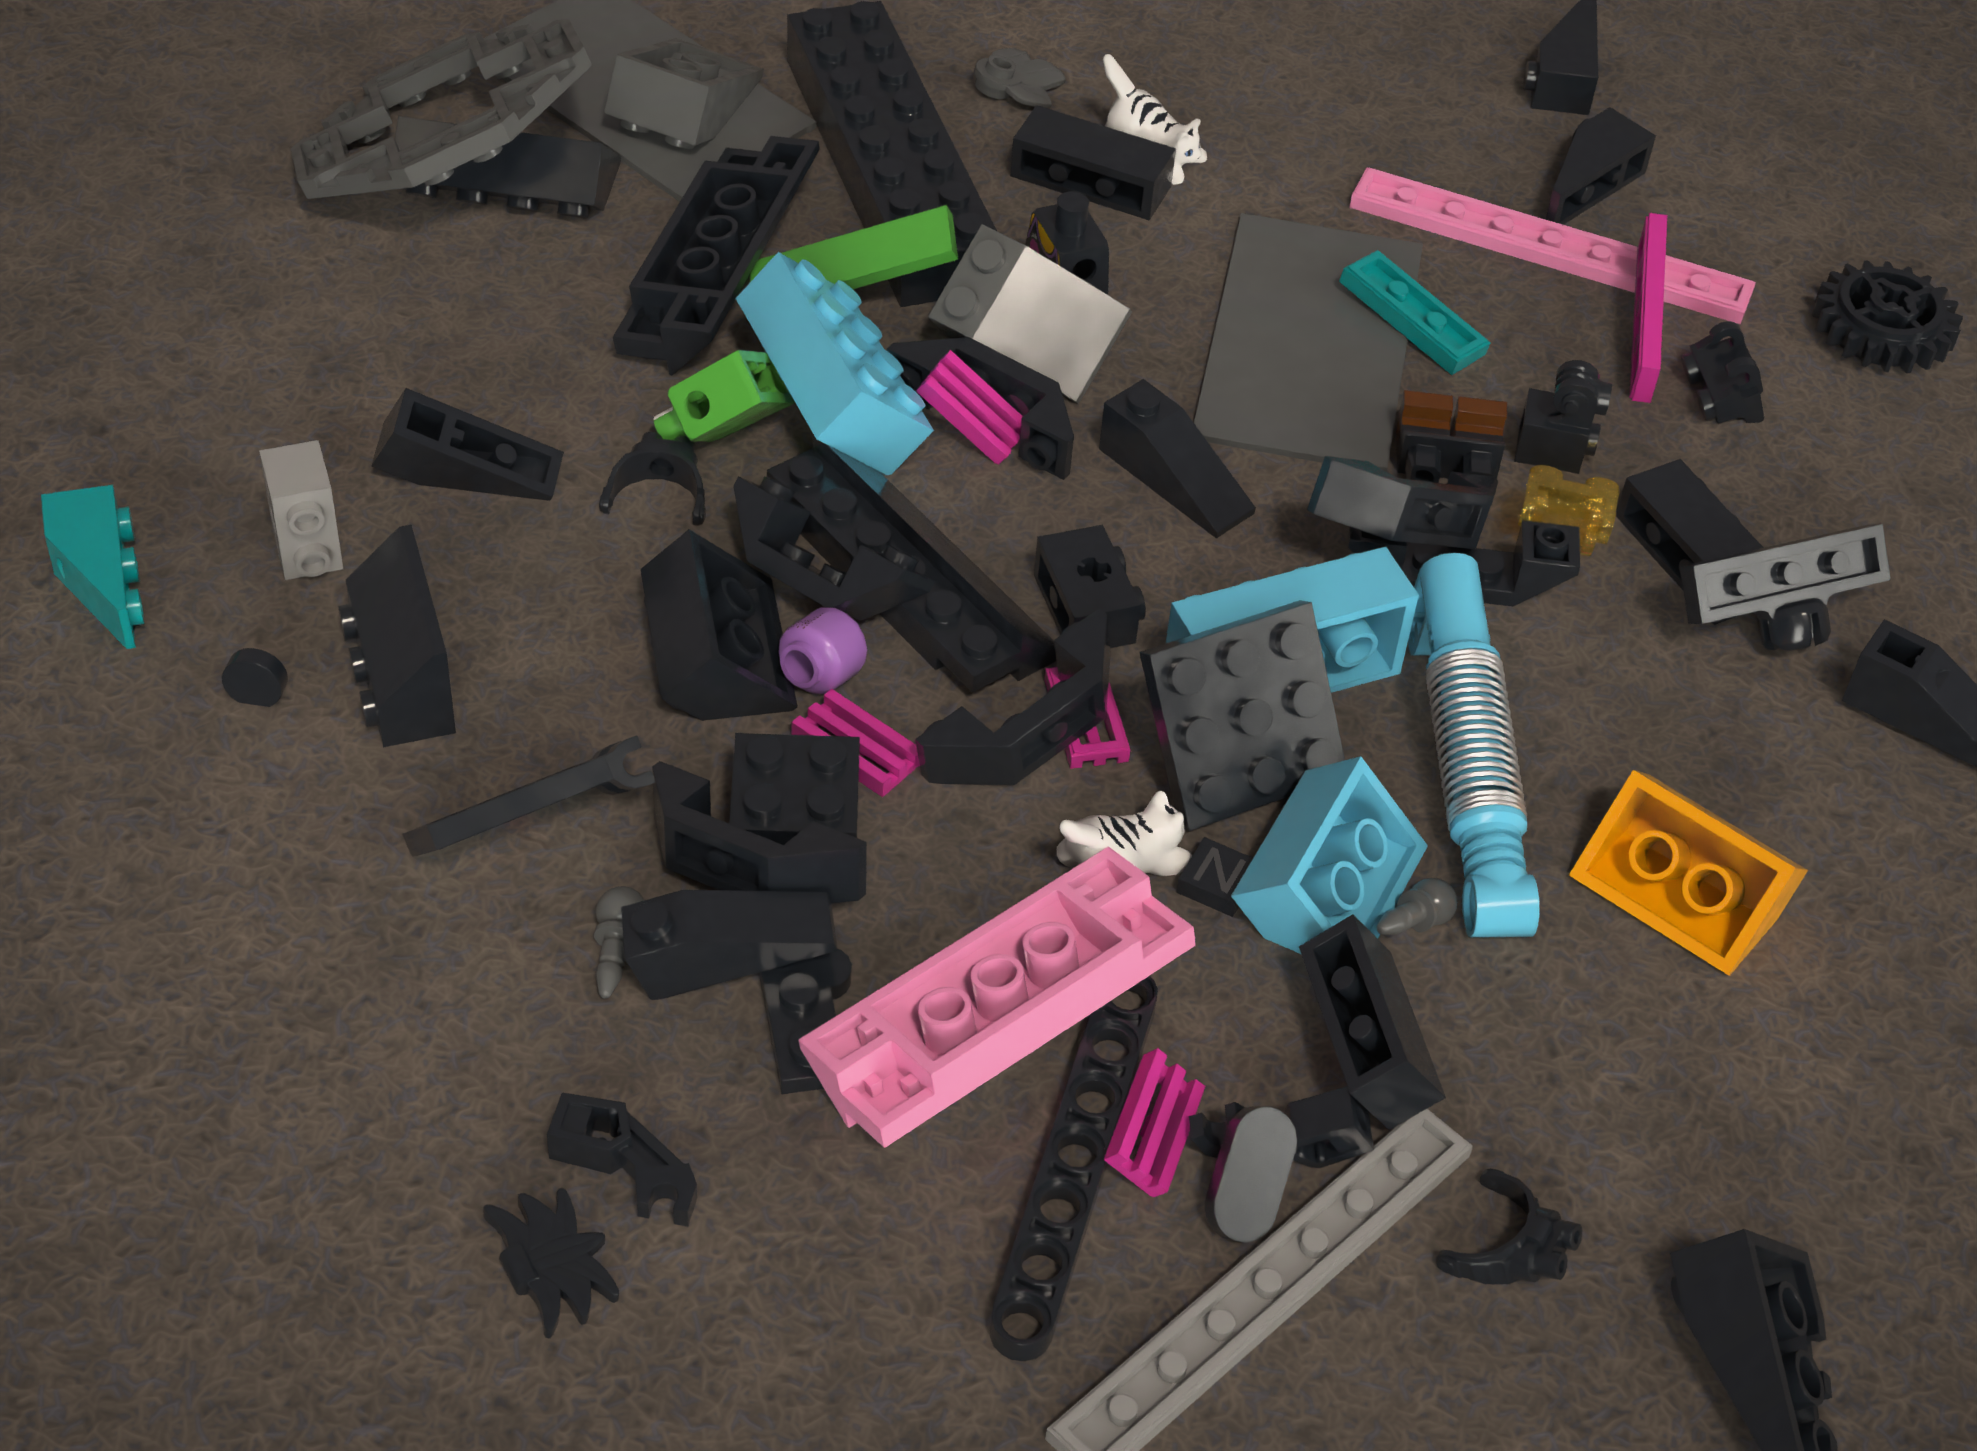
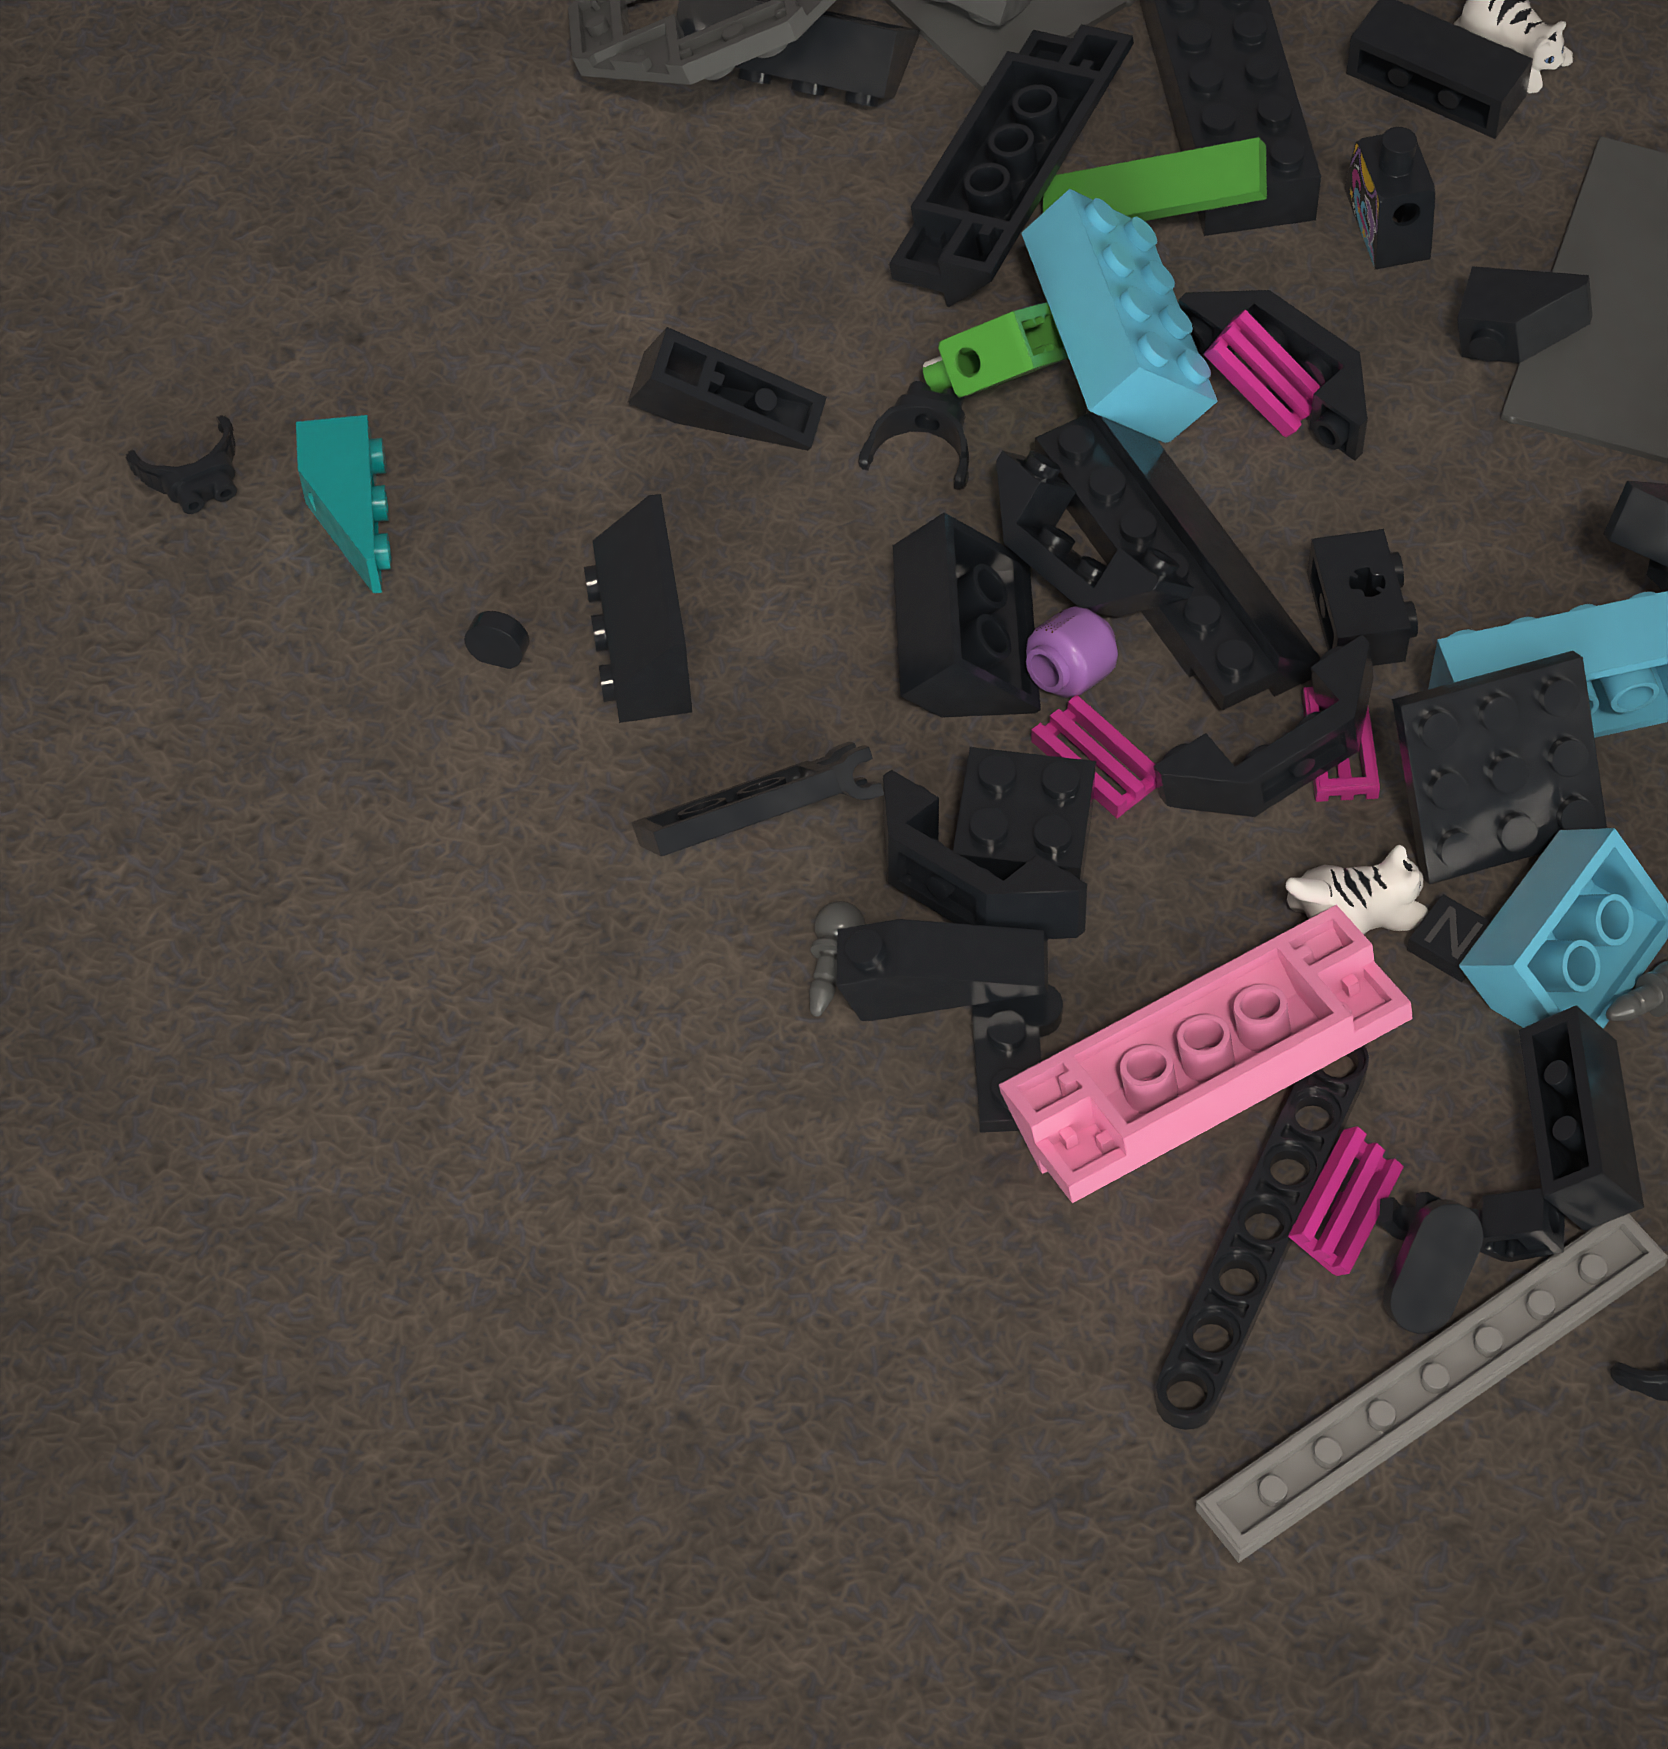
camera: 15 degrees right, 10 degrees up
(301, 509) = (553, 457): light grey brick -> none
(551, 1258) = (742, 1280): black piece -> none
(636, 1150) = (831, 1179): black piece -> none
(1030, 311) = (1339, 265): slope -> none
(1171, 456) = (1474, 447): black slope -> none
(1197, 346) = (1520, 312): none -> black slope

